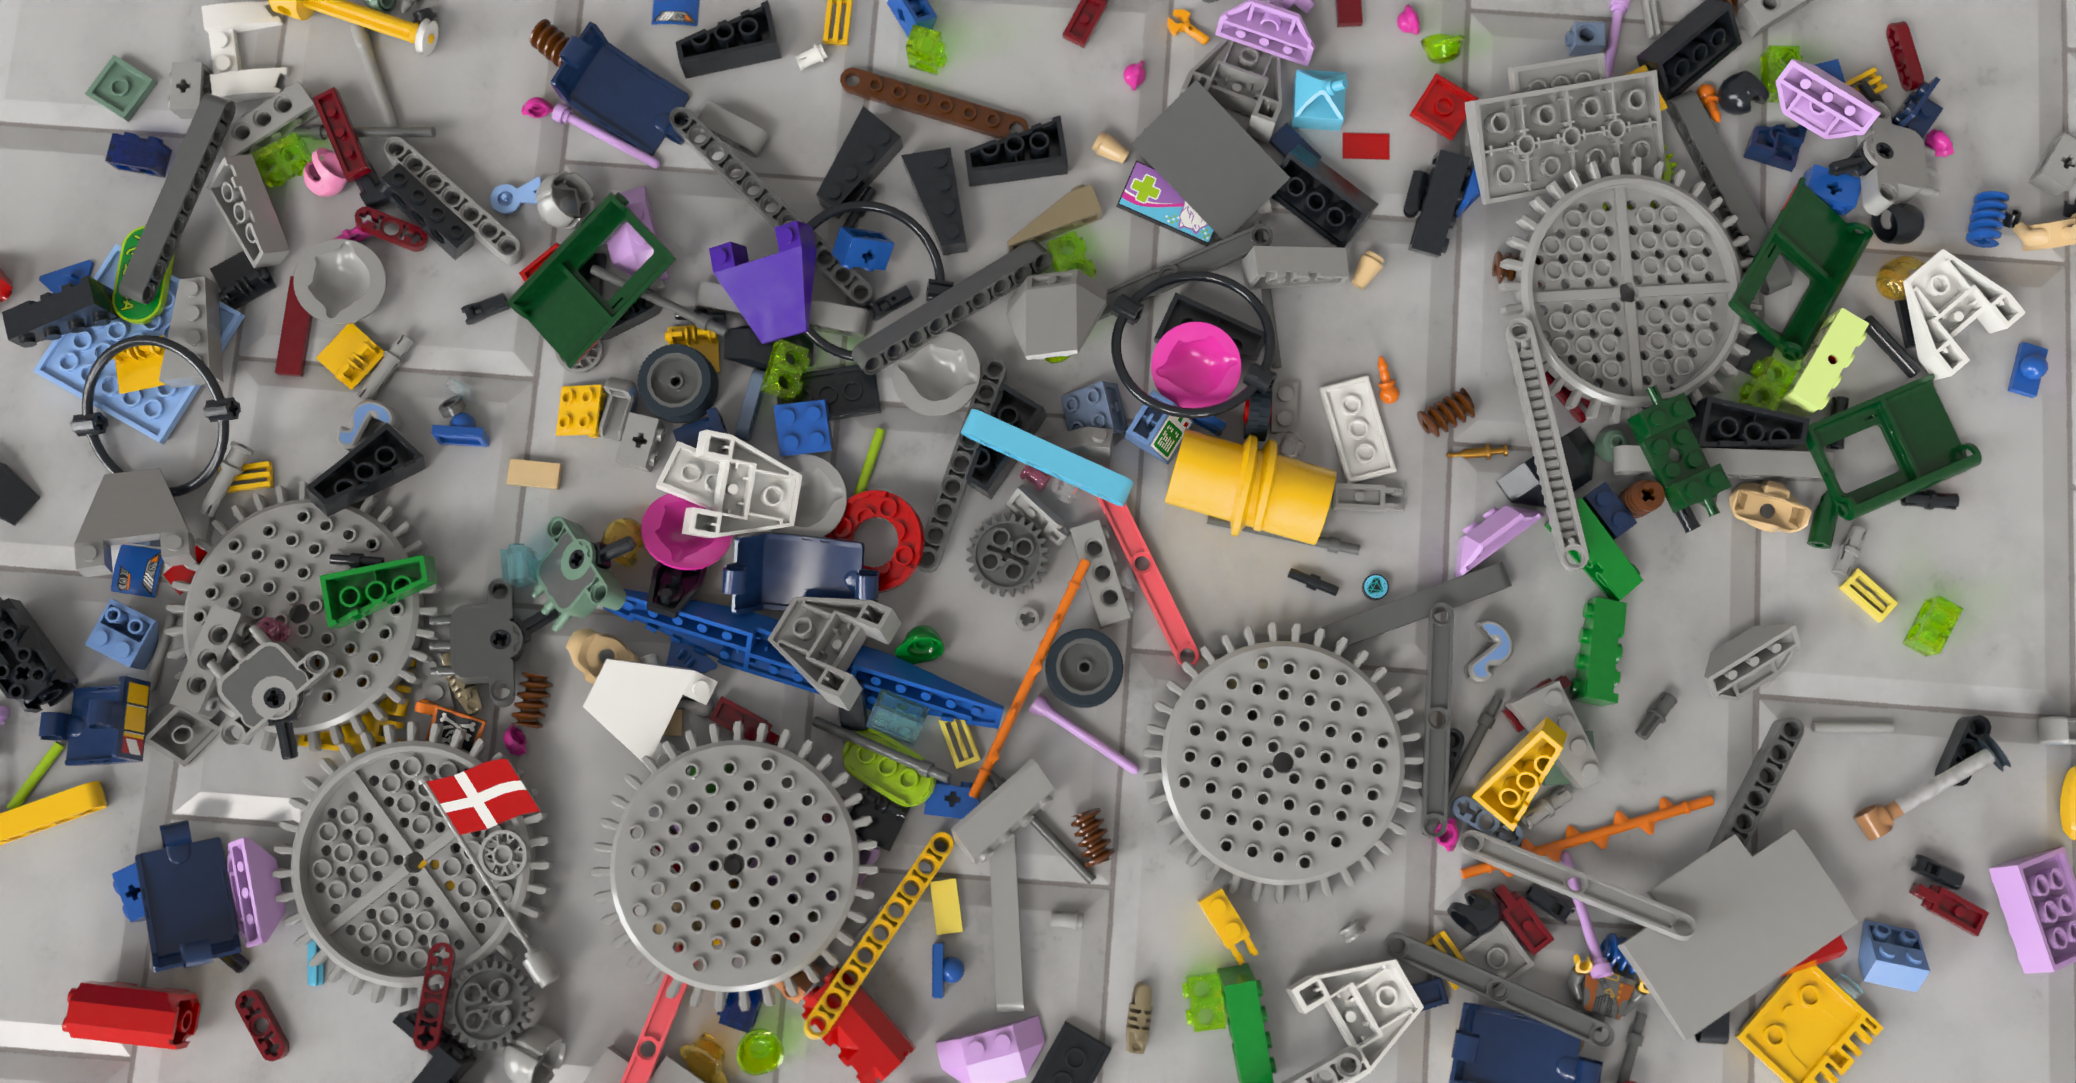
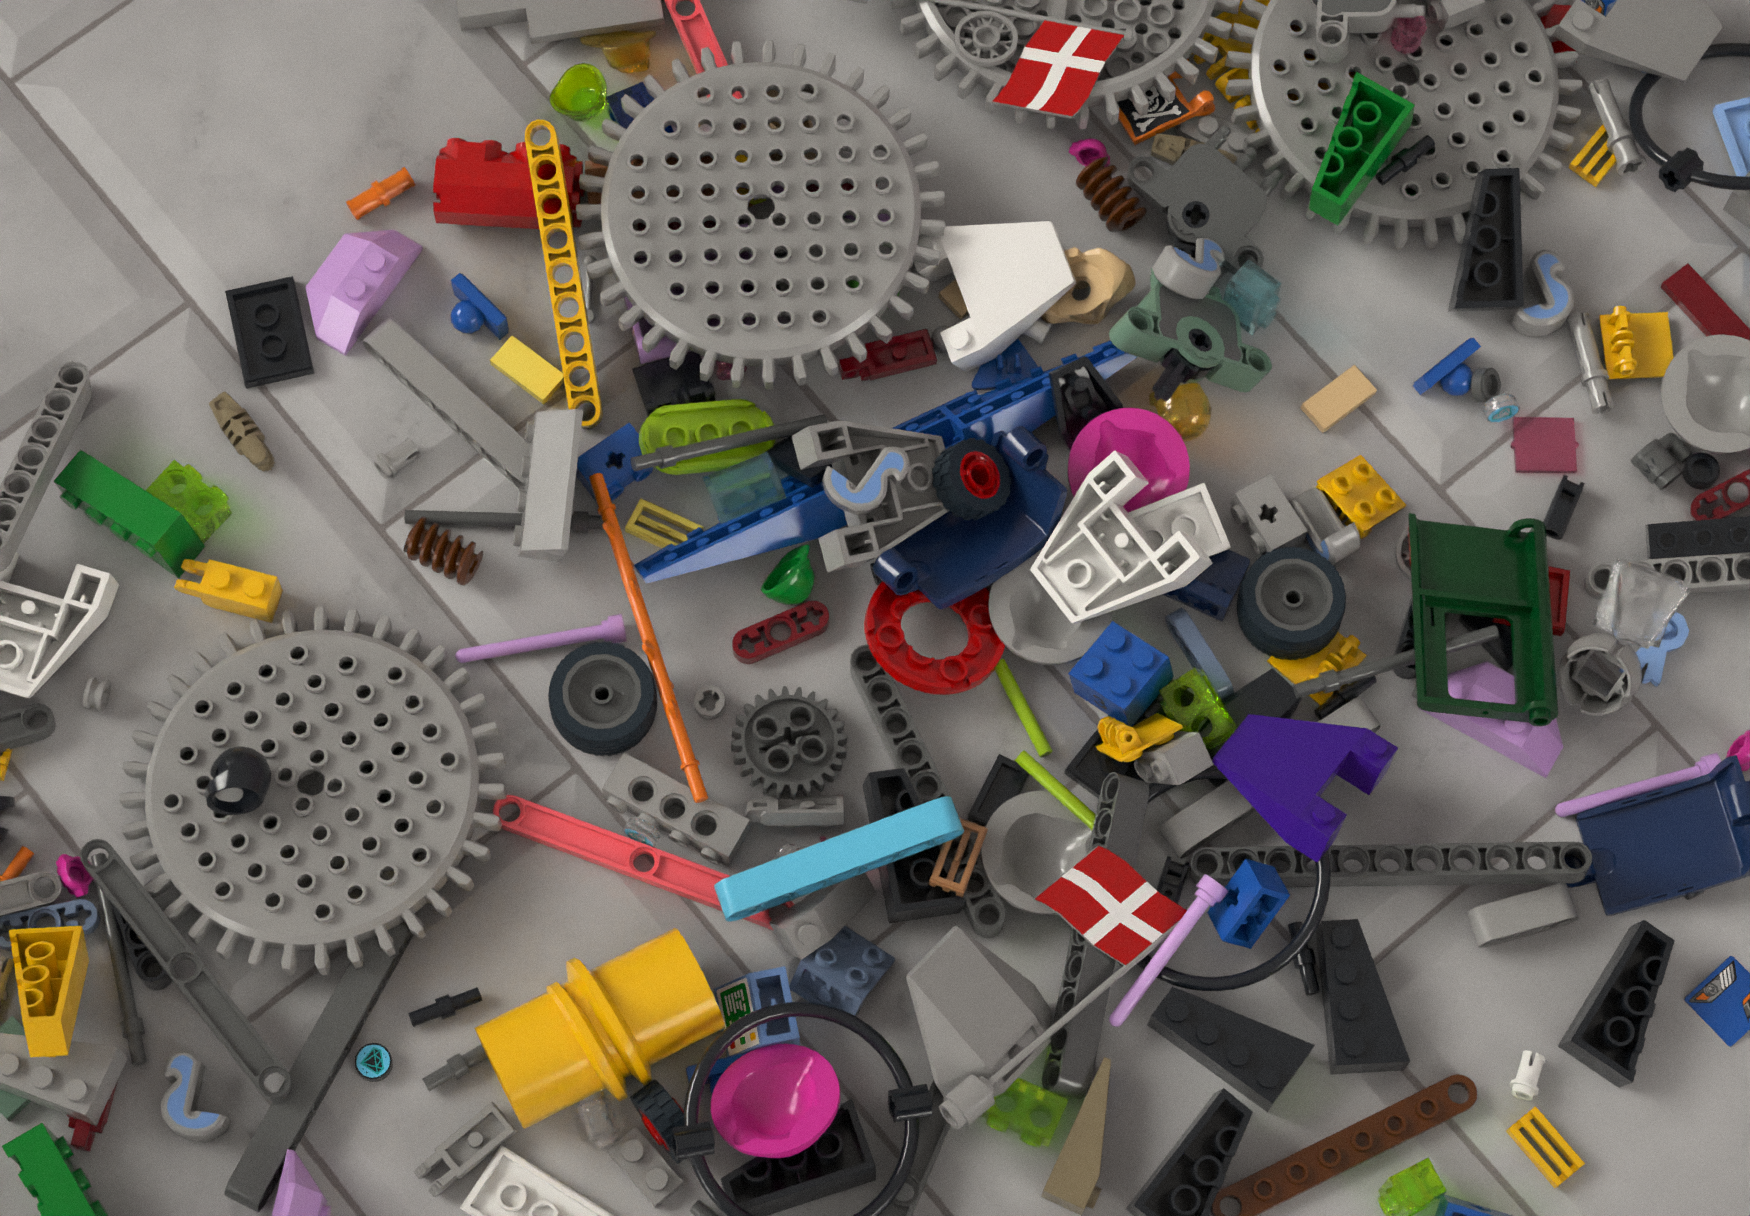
camera: 130 degrees right, 10 degrees down
(395, 262) = (1701, 471): none -> black tile
(412, 286) = (1657, 463): none -> dark grey piece
(457, 350) = (1544, 445): none -> clear pink piece
(507, 211) = (1639, 603): none -> clear piece
(538, 603) = (1190, 275): none -> light grey animal
(775, 600) = (971, 479): none -> black wheel
(824, 356) = (1174, 760): none -> light grey brick
(830, 382) = (1128, 742): none -> yellow hinge
(836, 636) = (871, 490): none -> animal
(878, 269) = (1207, 895): none -> lavender piece
(898, 403) = (1056, 788): none -> lime bar
(925, 431) = (1002, 784): none -> black tile
(936, 306) = (1113, 913): none -> flag
(949, 612) = (775, 646): none -> dark red beam
(993, 412) = (948, 884): none -> medium nougat tile
(1322, 792) = (240, 769): none -> black helmet

